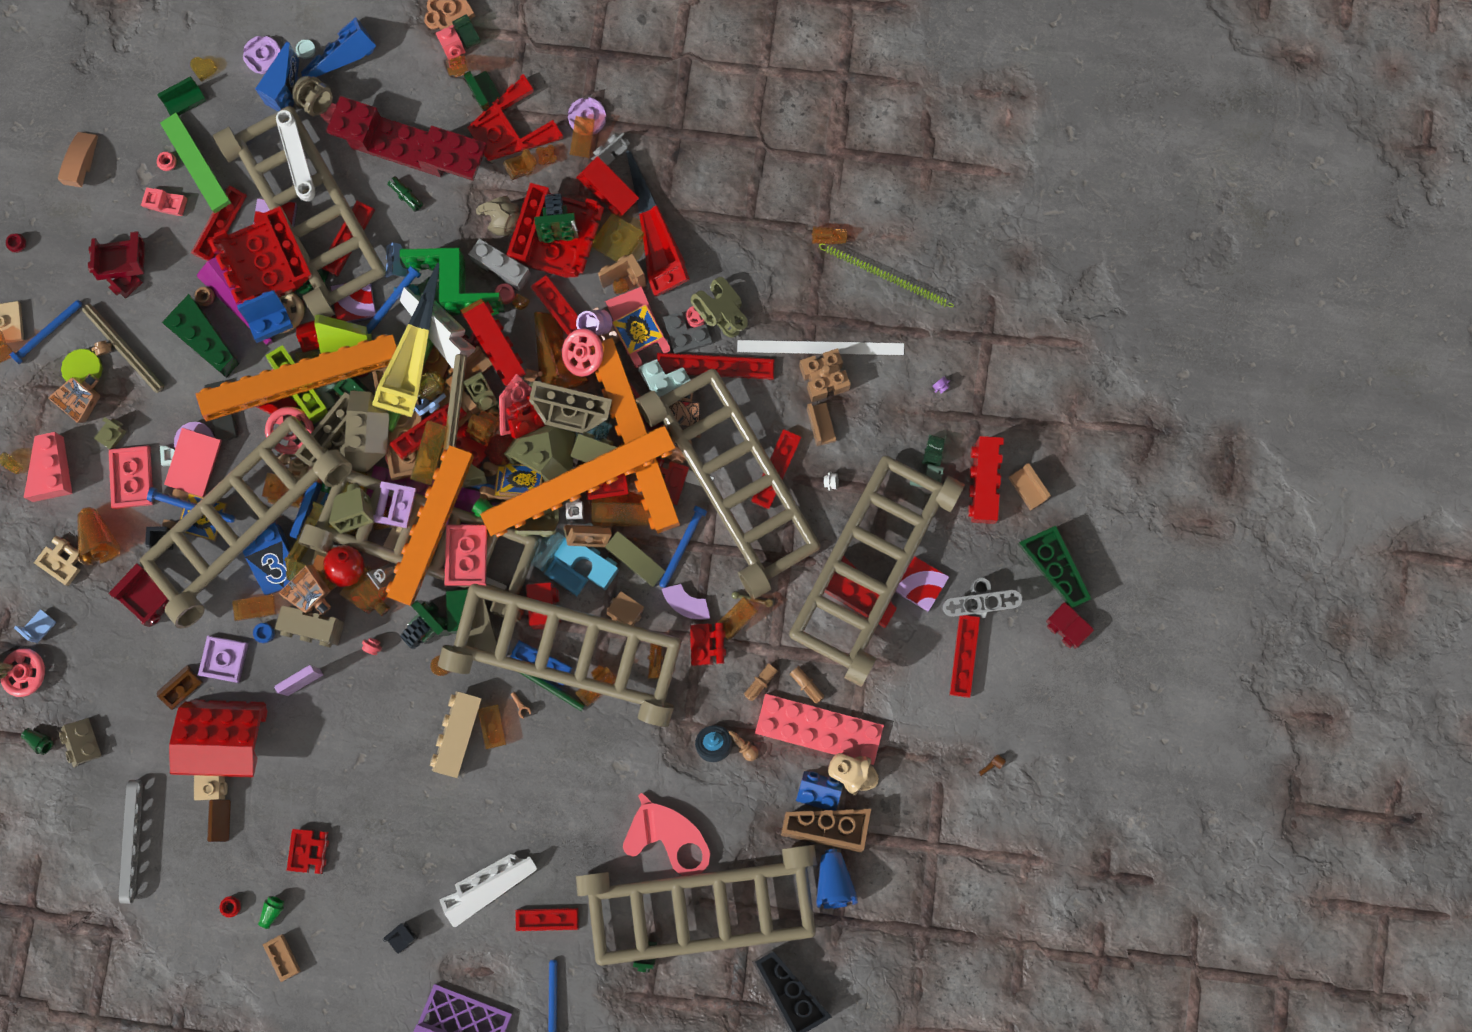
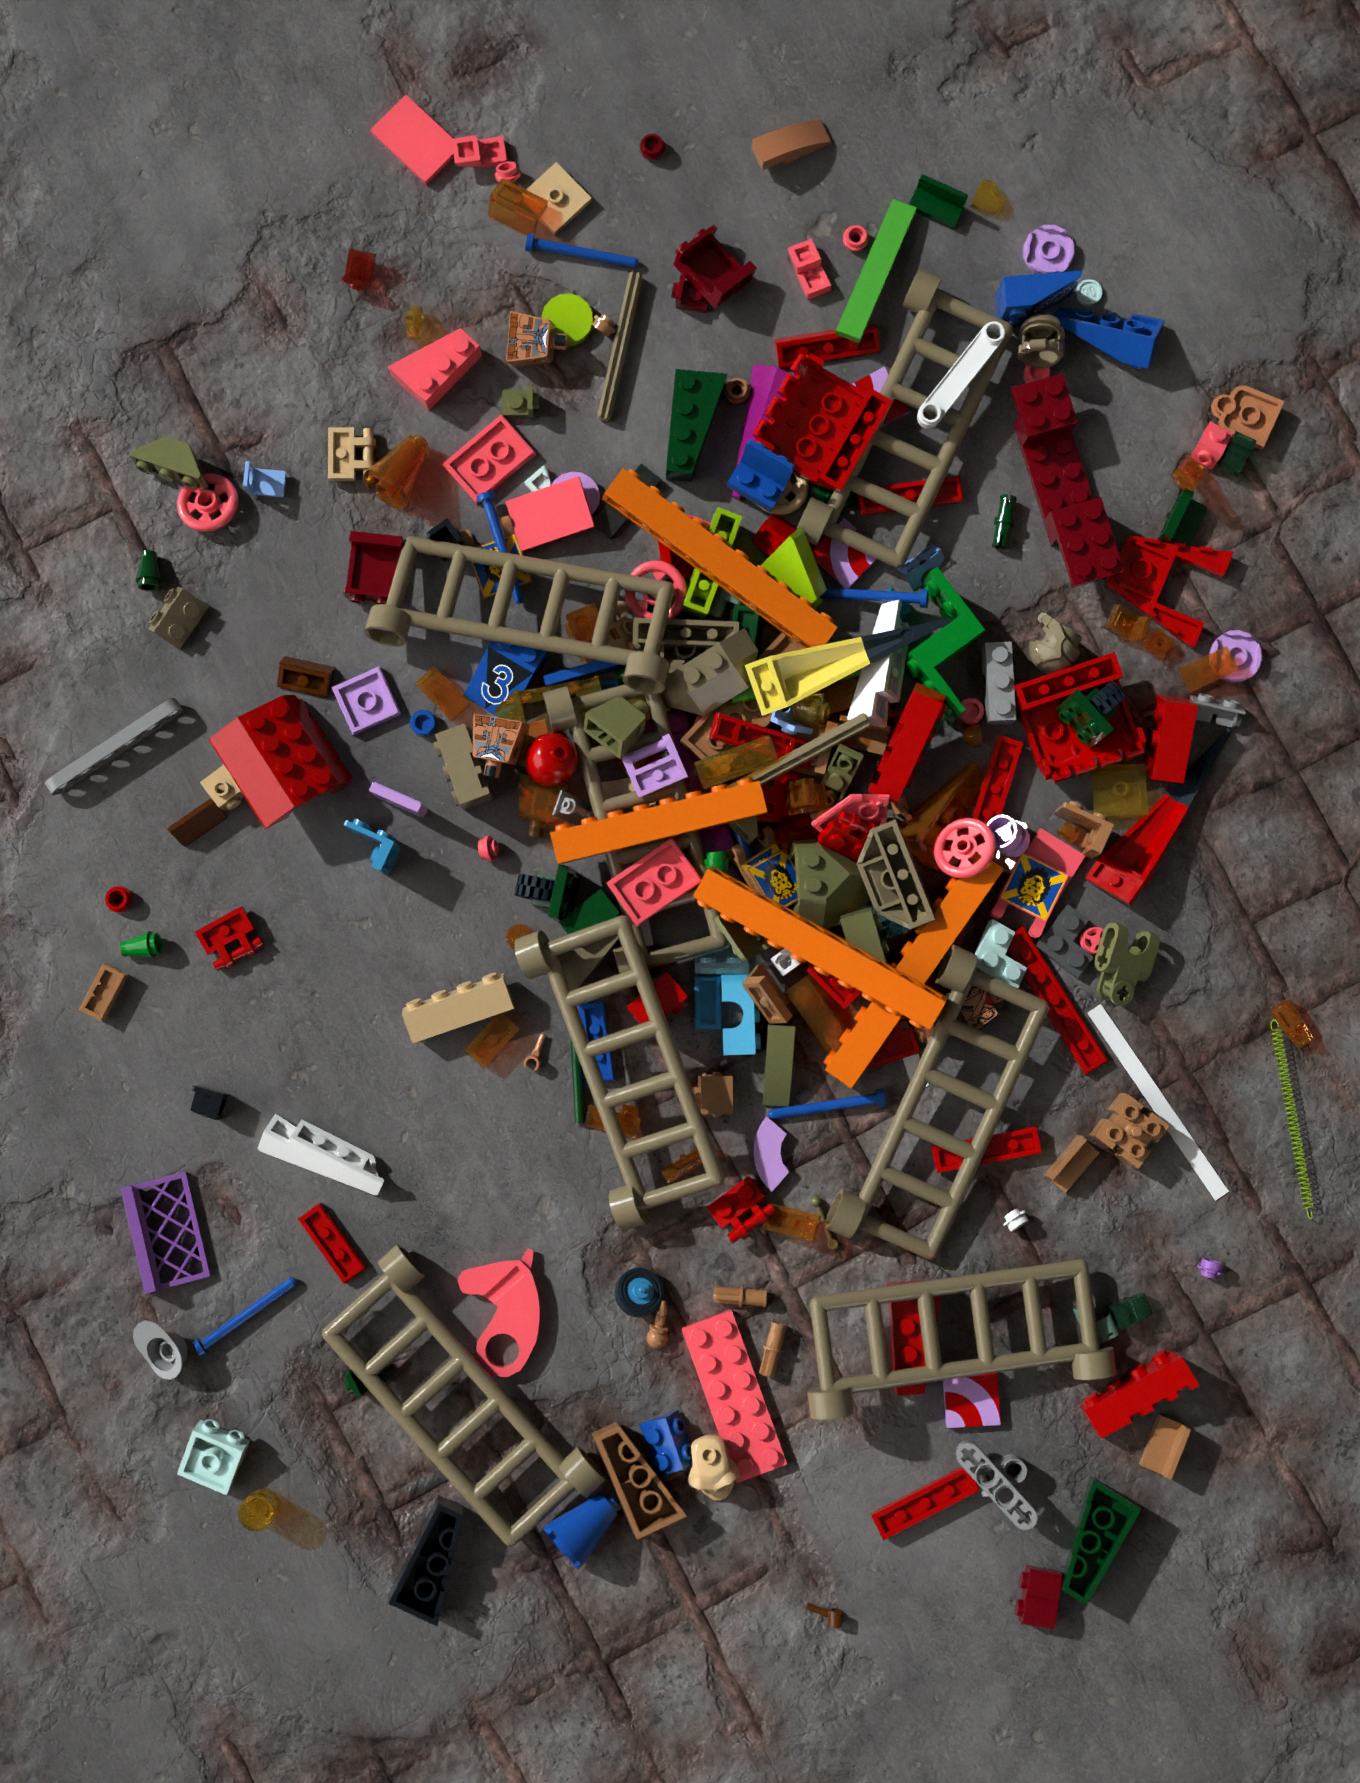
camera: 50 degrees right, 5 degrees up
(323, 709) = (383, 856): none -> dark azure bracket

